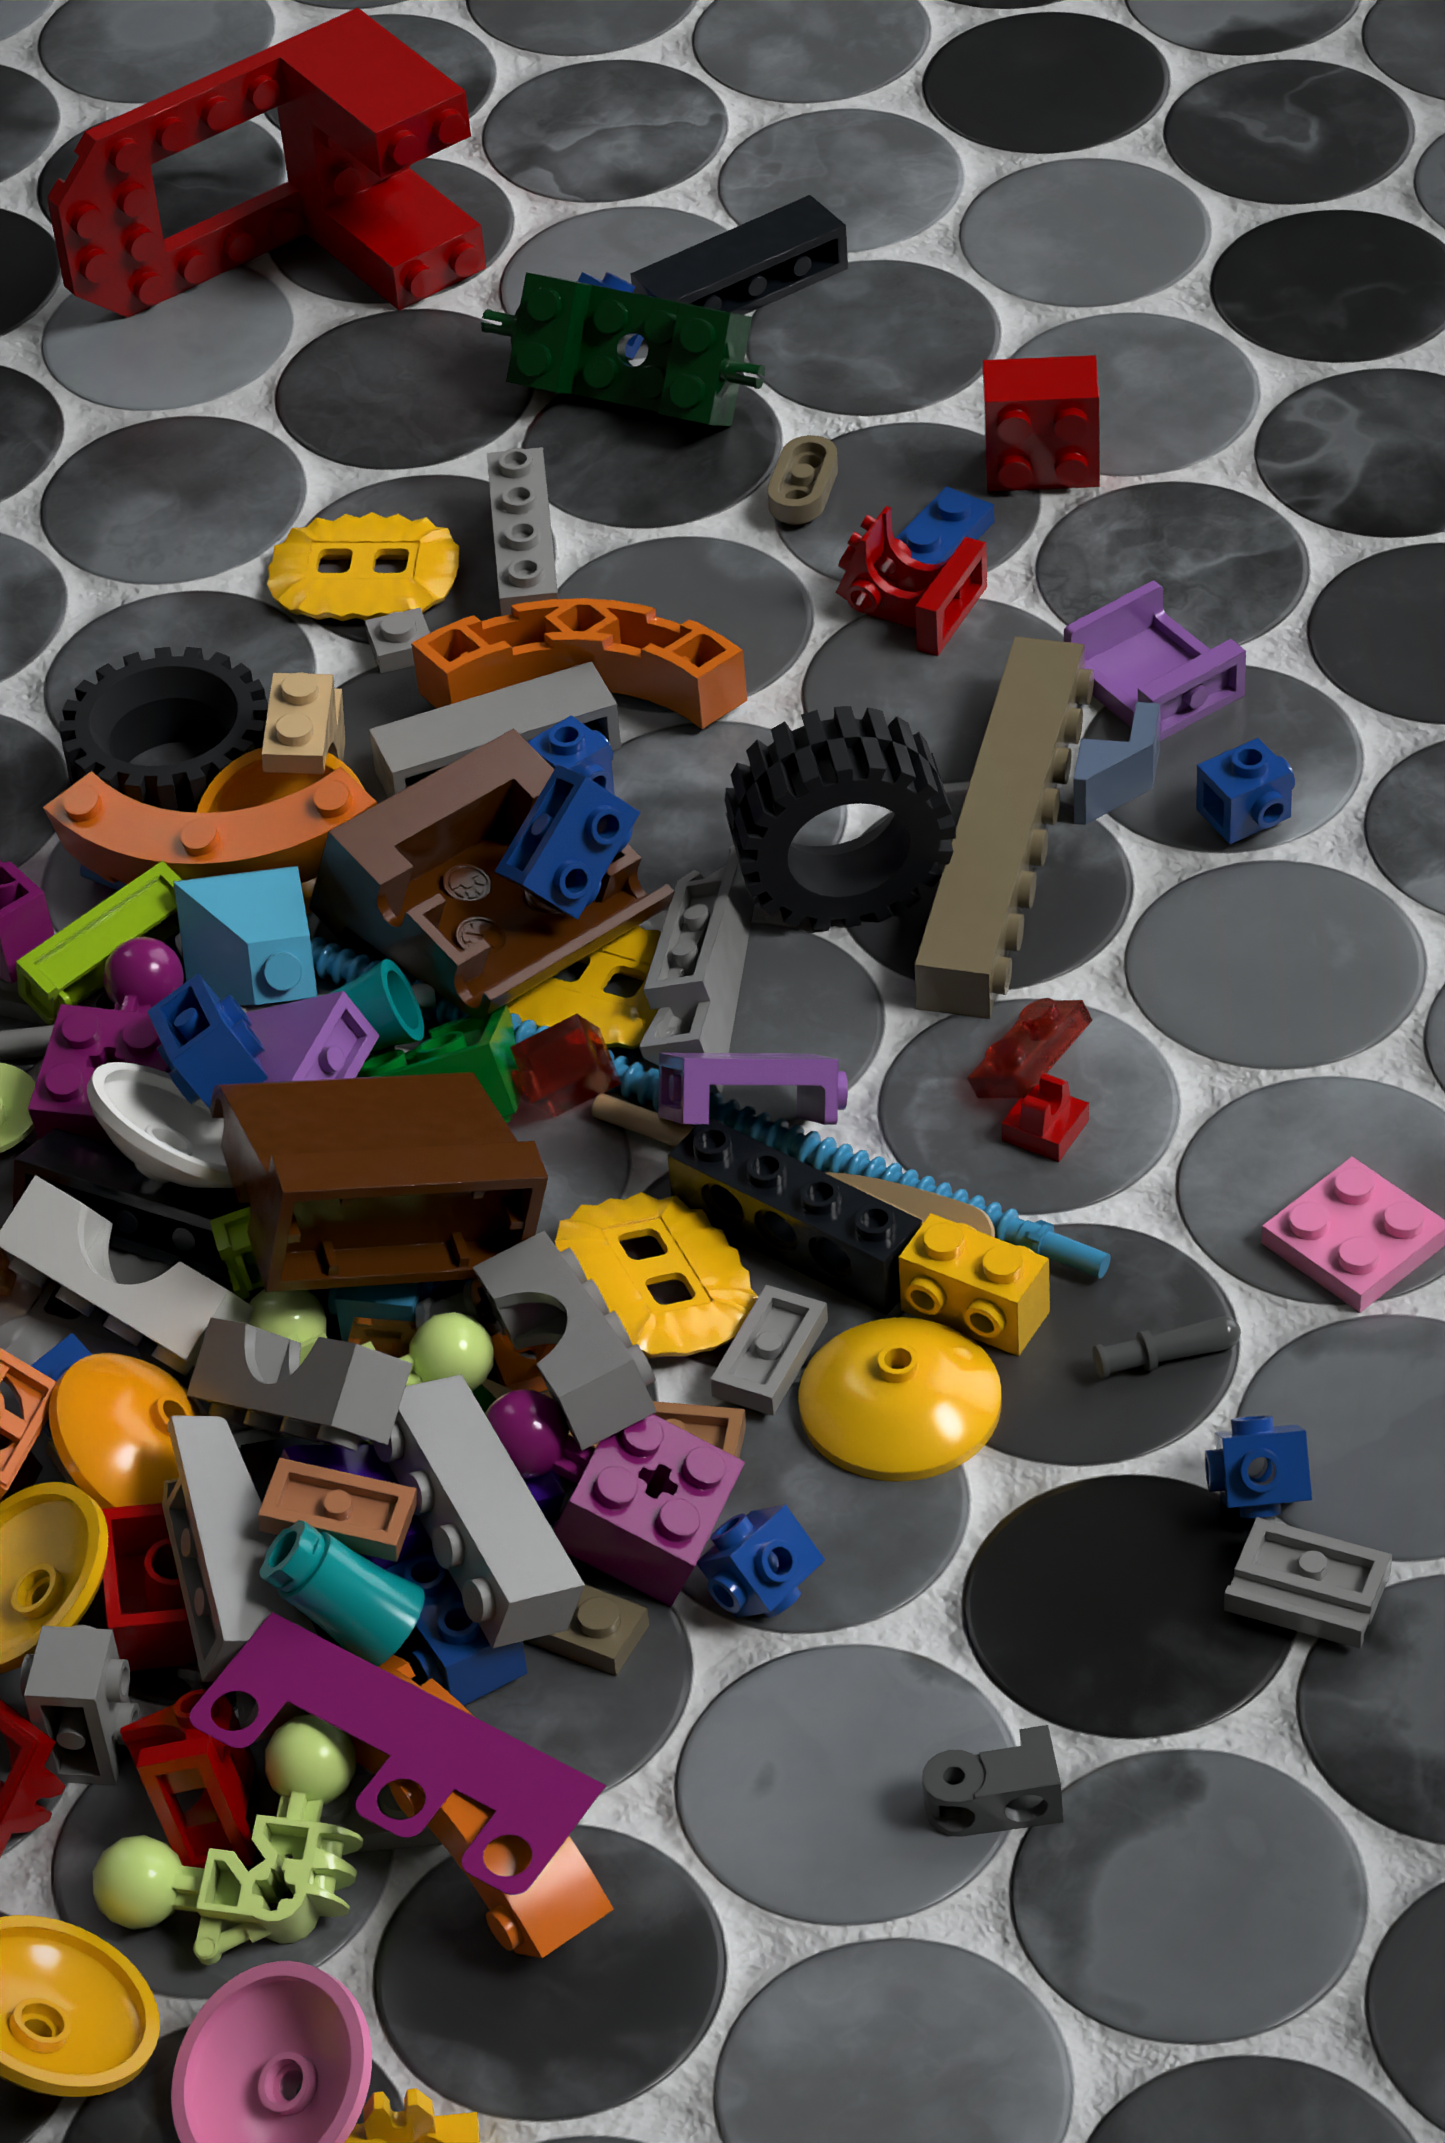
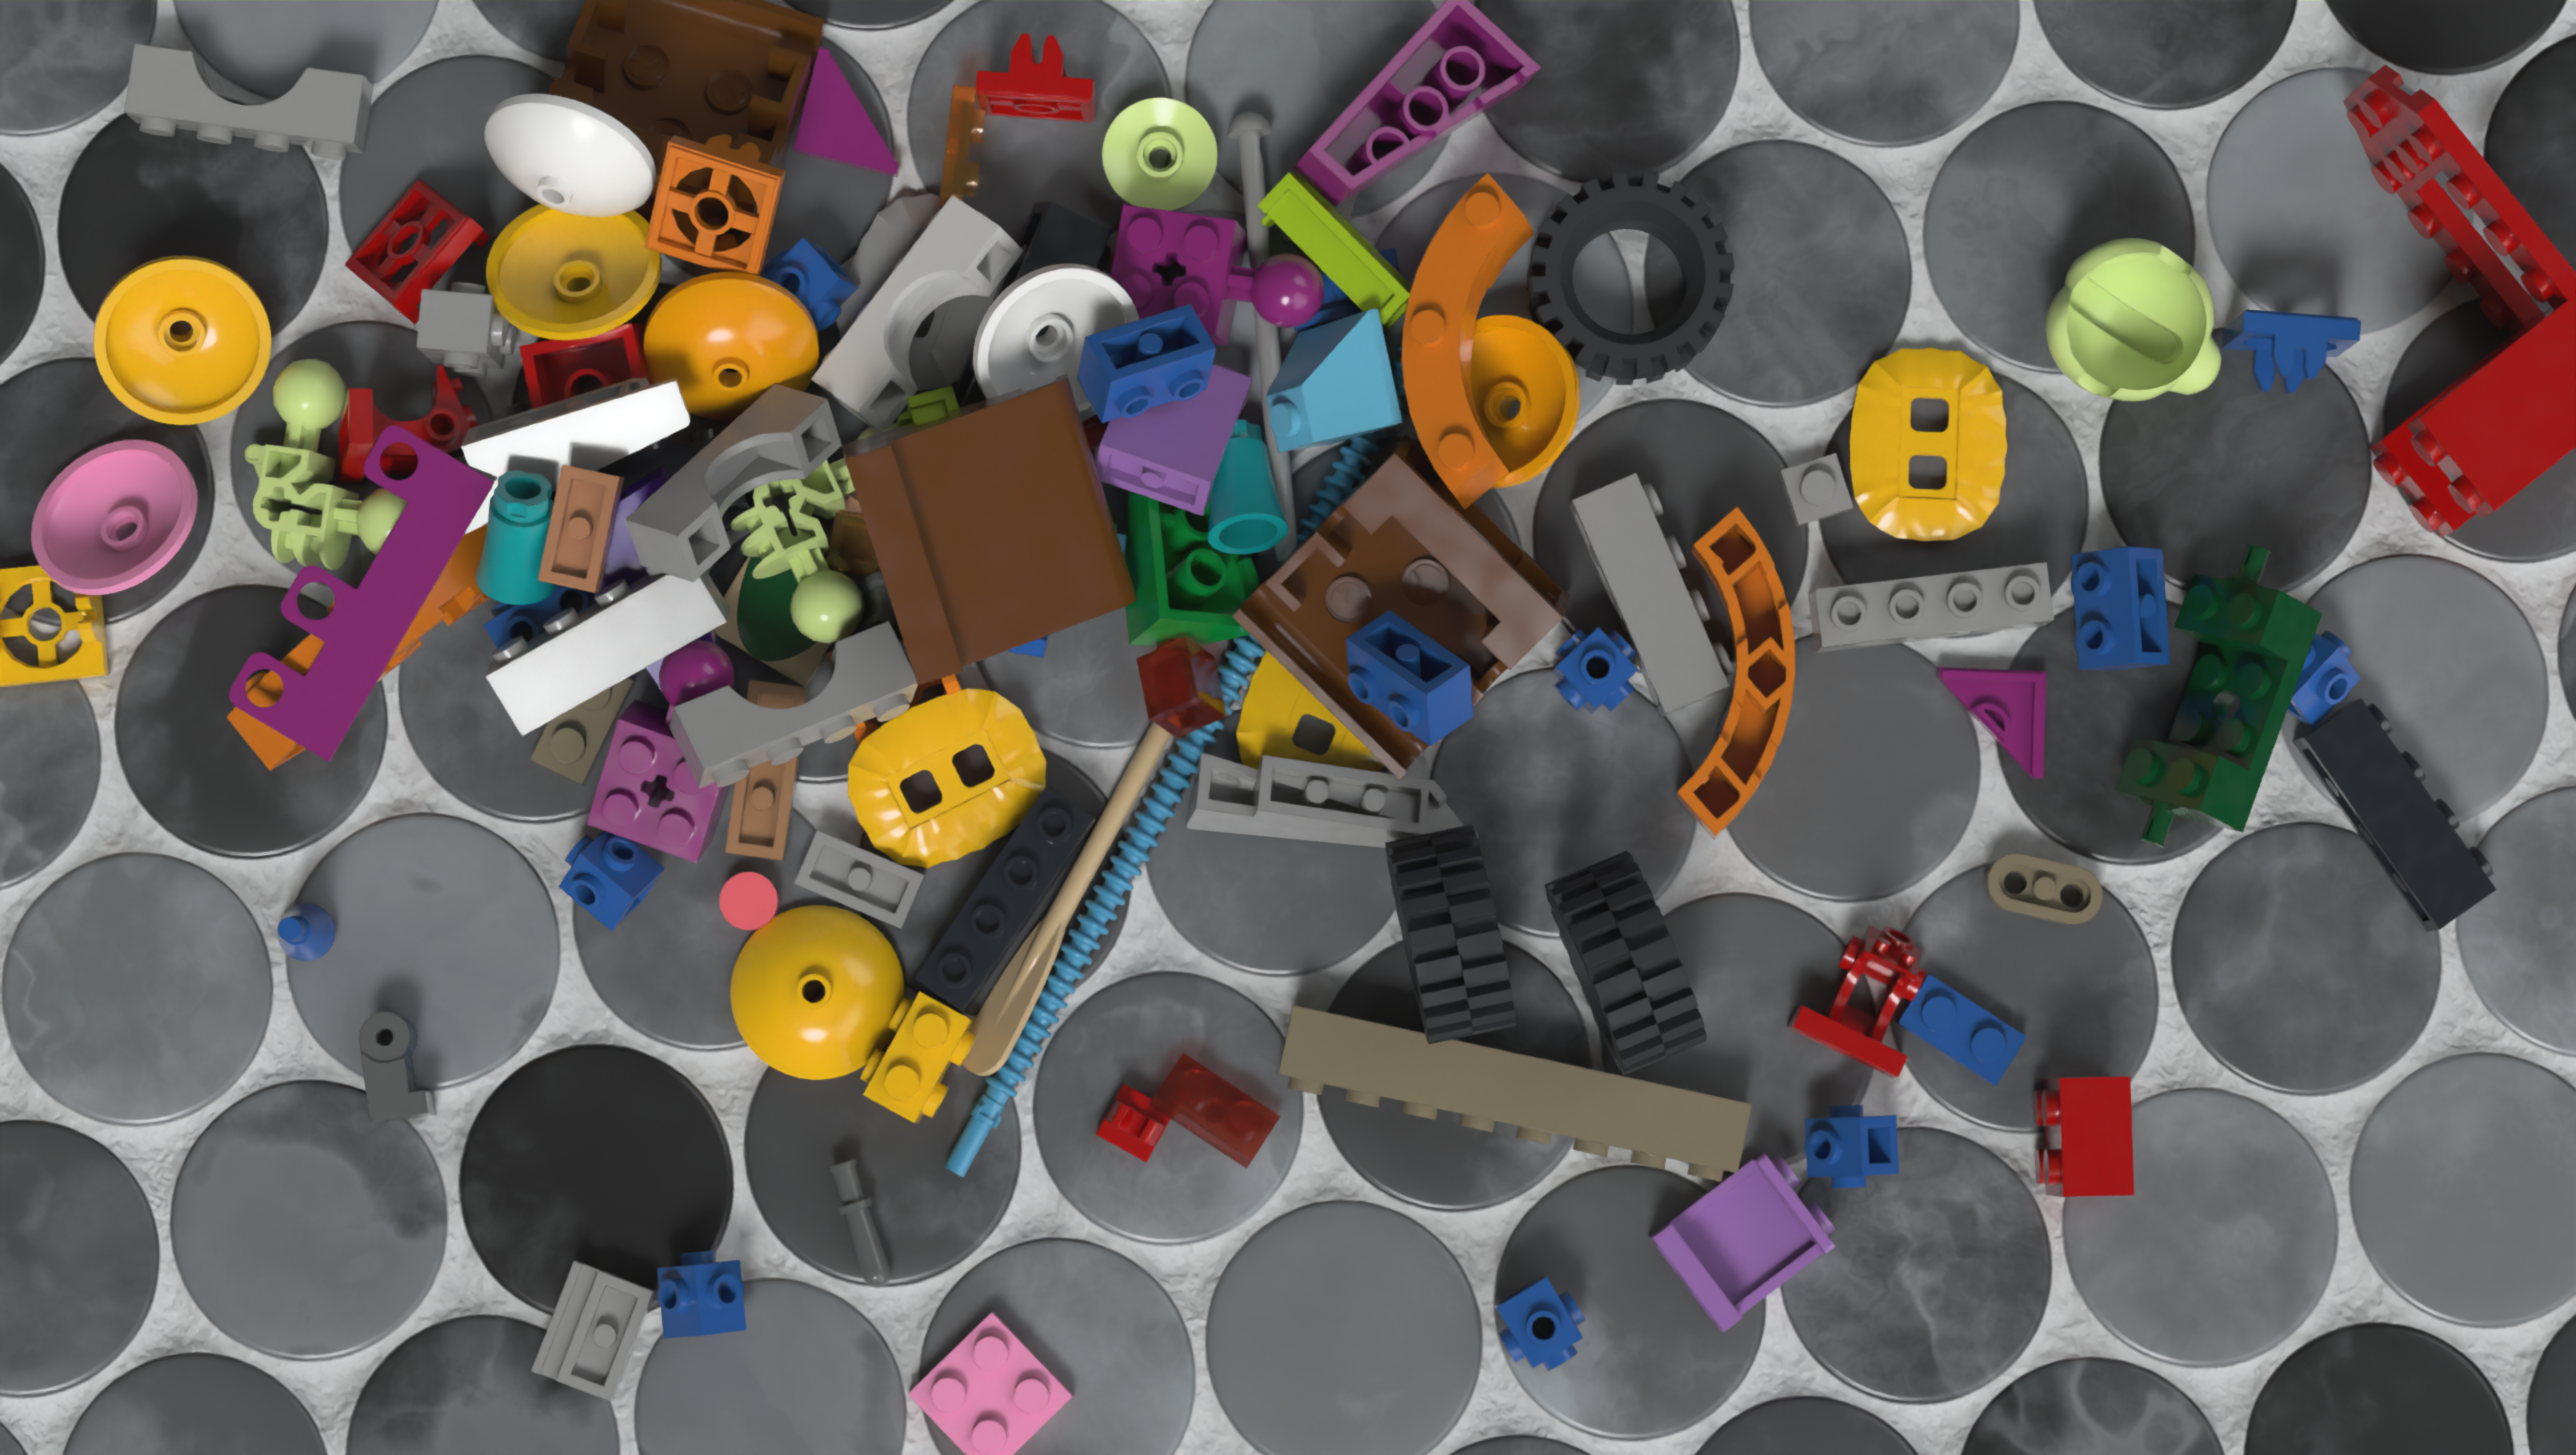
camera: 80 degrees right, 40 degrees up
(261, 409) = (2134, 323): none -> yellowish green piece
(288, 323) = (2290, 343): none -> blue piece
(303, 723) = (1599, 411): tan arch -> none
(536, 415) = (2120, 609): none -> blue brick
(629, 511) = (2008, 708): none -> magenta tile
(688, 1077) = (1133, 854): medium lavender panel -> none
(792, 1456) = (749, 901): none -> coral tile
(820, 1880) = (306, 932): none -> blue cone
(869, 633) = (1626, 962): none -> black tyre
(1061, 561) = (1851, 1146): none -> blue brick
(1117, 771) = (1577, 1190): sand blue slope -> none

